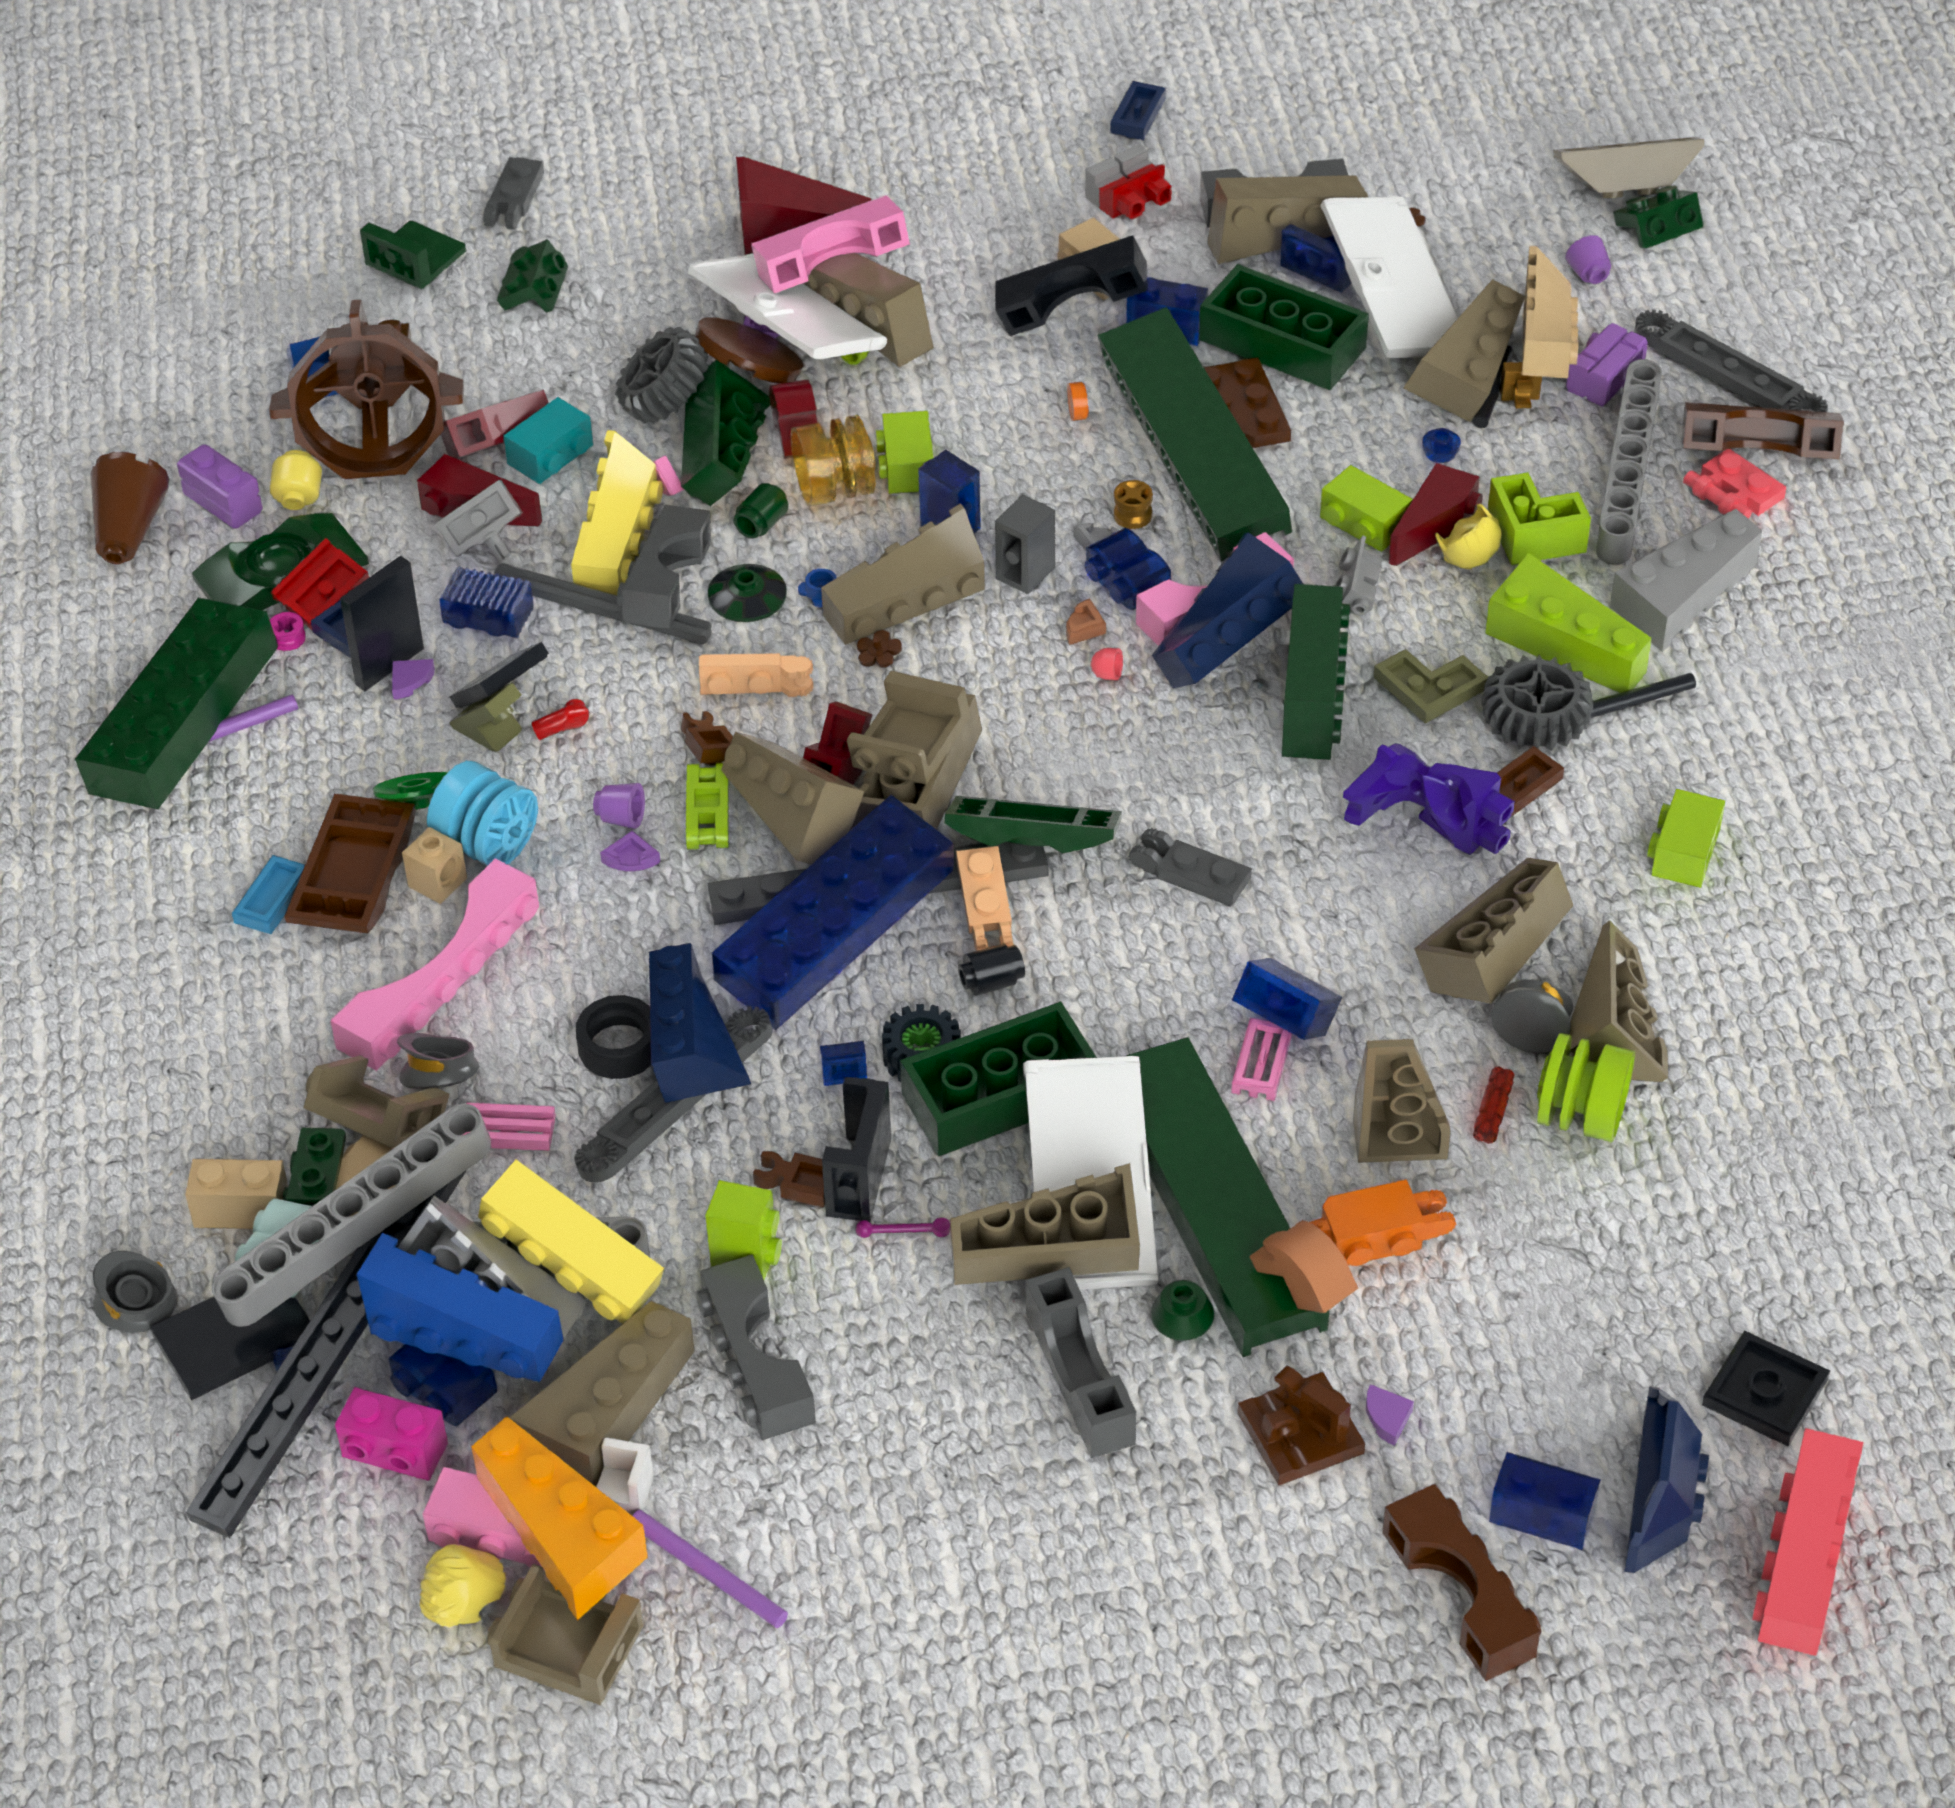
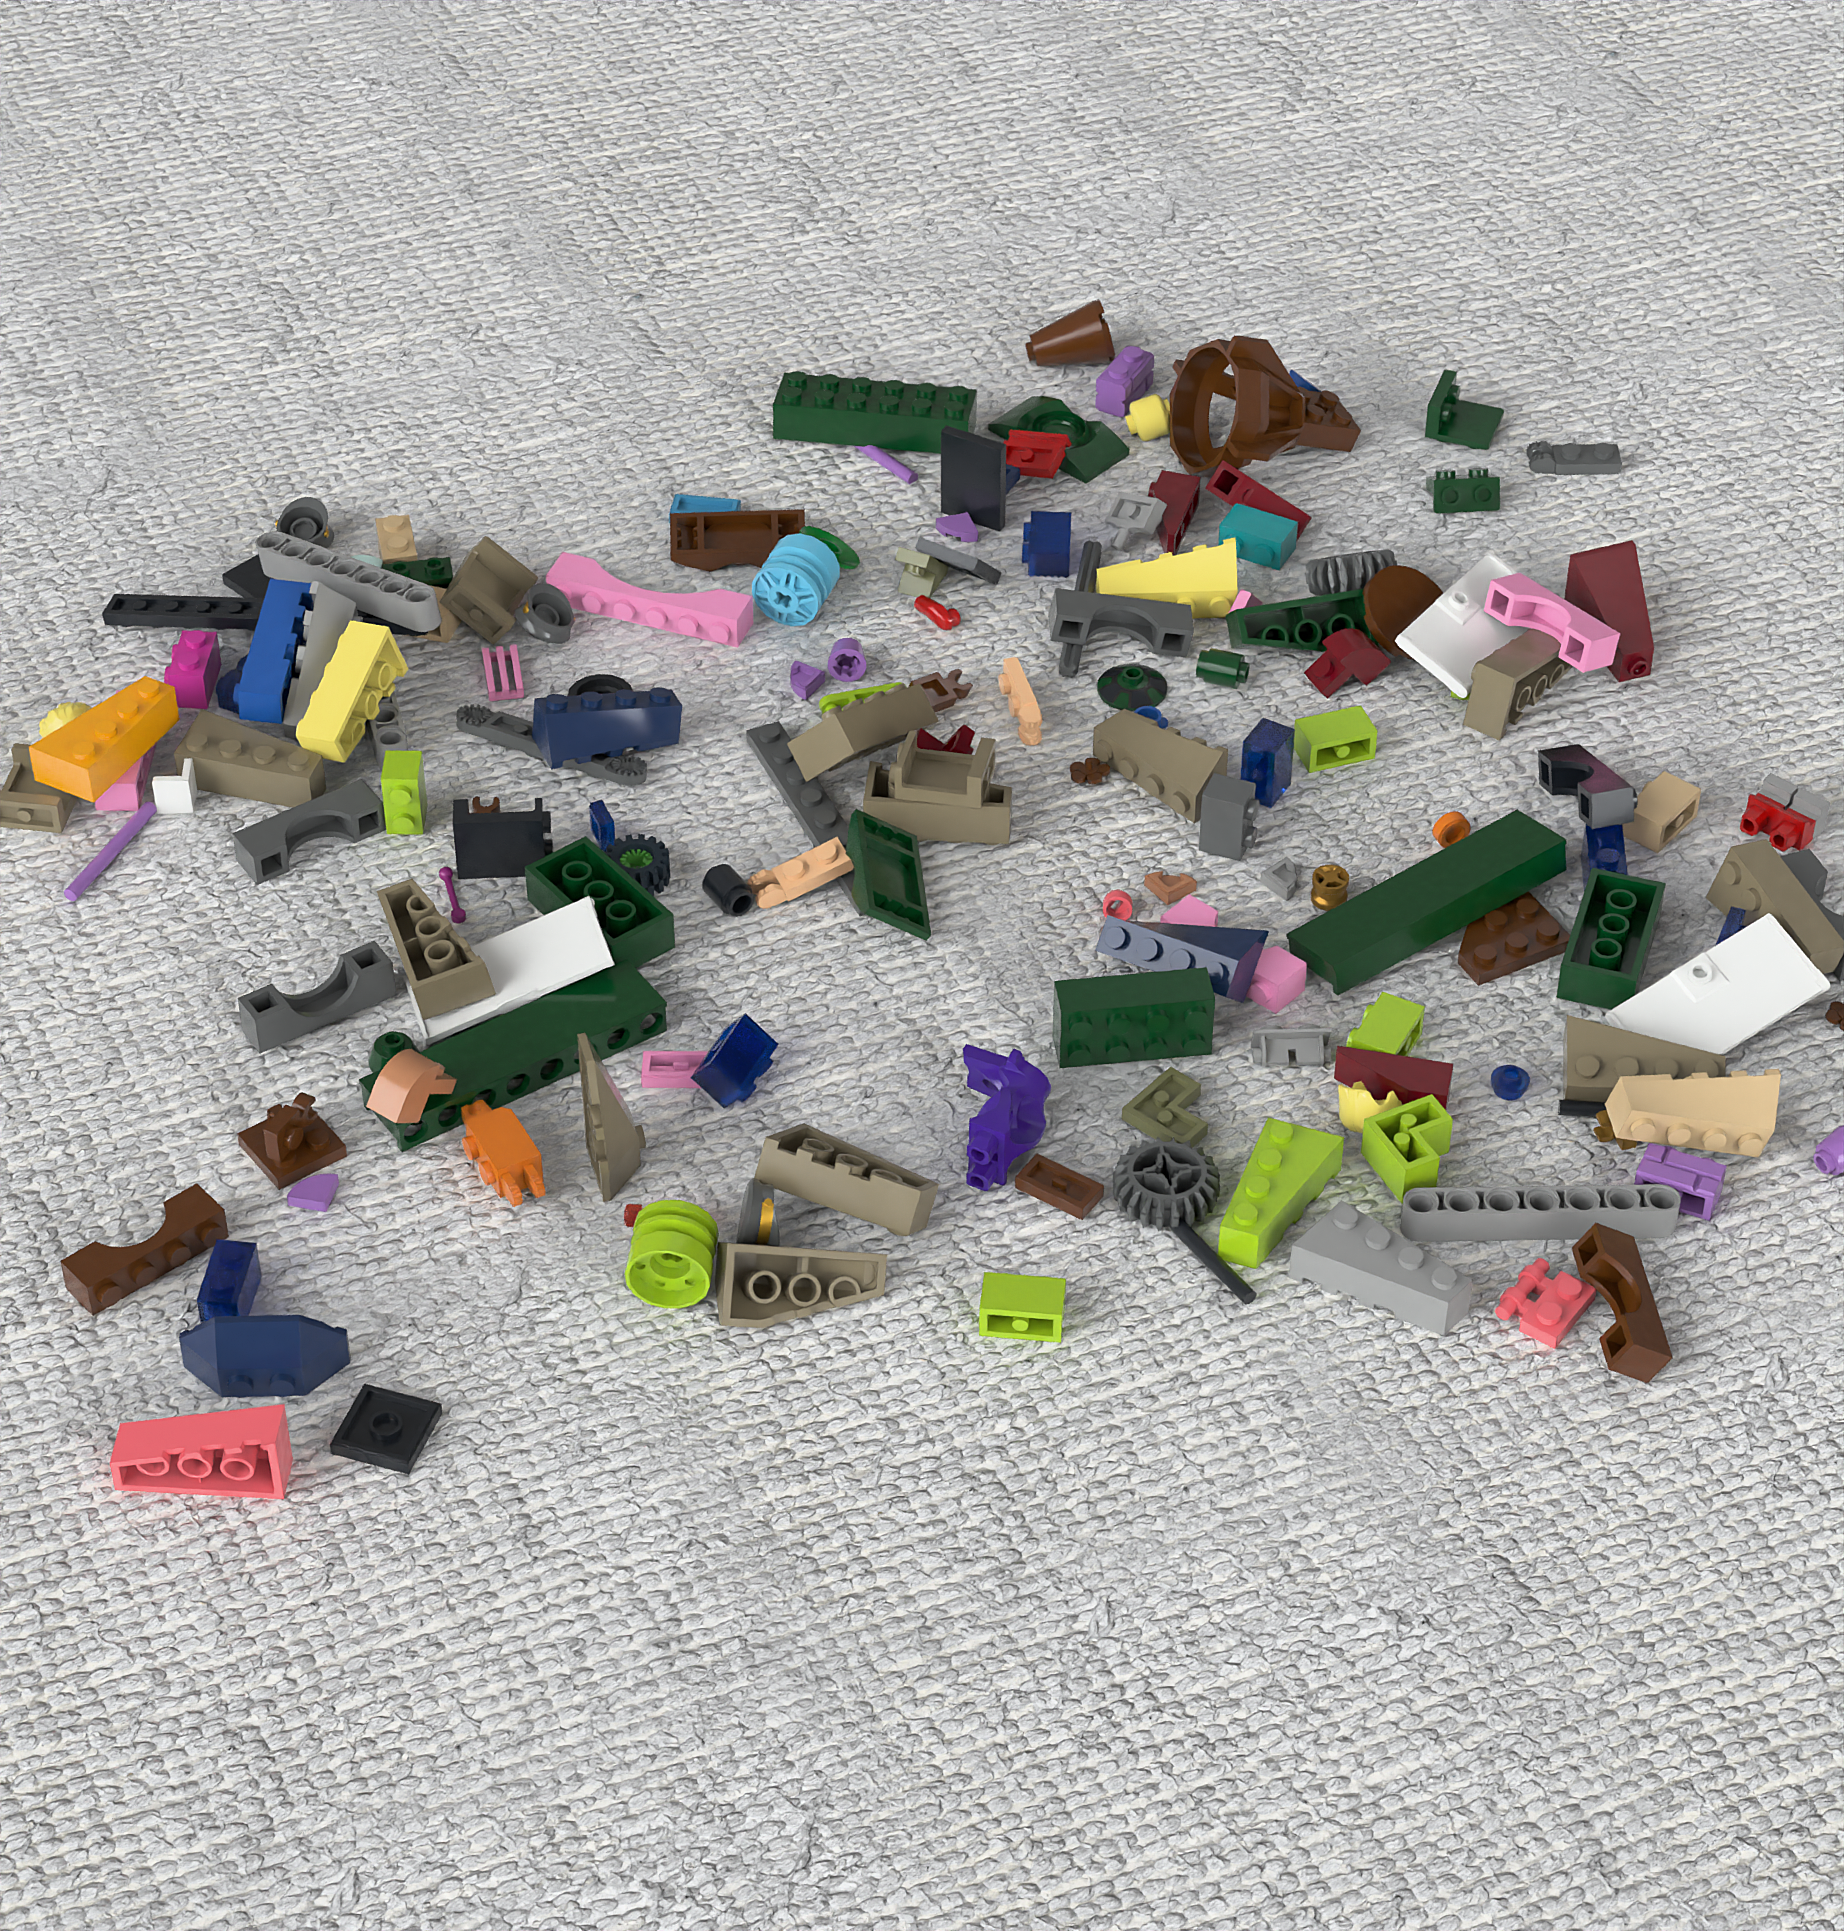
camera: 75 degrees right, 5 degrees down
(434, 865) = (742, 569): tan brick -> none
(833, 911) = (749, 781): clear blue brick -> none
(840, 459) = (1285, 683): clear yellow wheel -> none
(1125, 566) = (1241, 893): clear blue brick -> none
(1190, 867) = (888, 996): dark grey hinge -> none
(1724, 364) = (1722, 1279): dark grey plate -> none

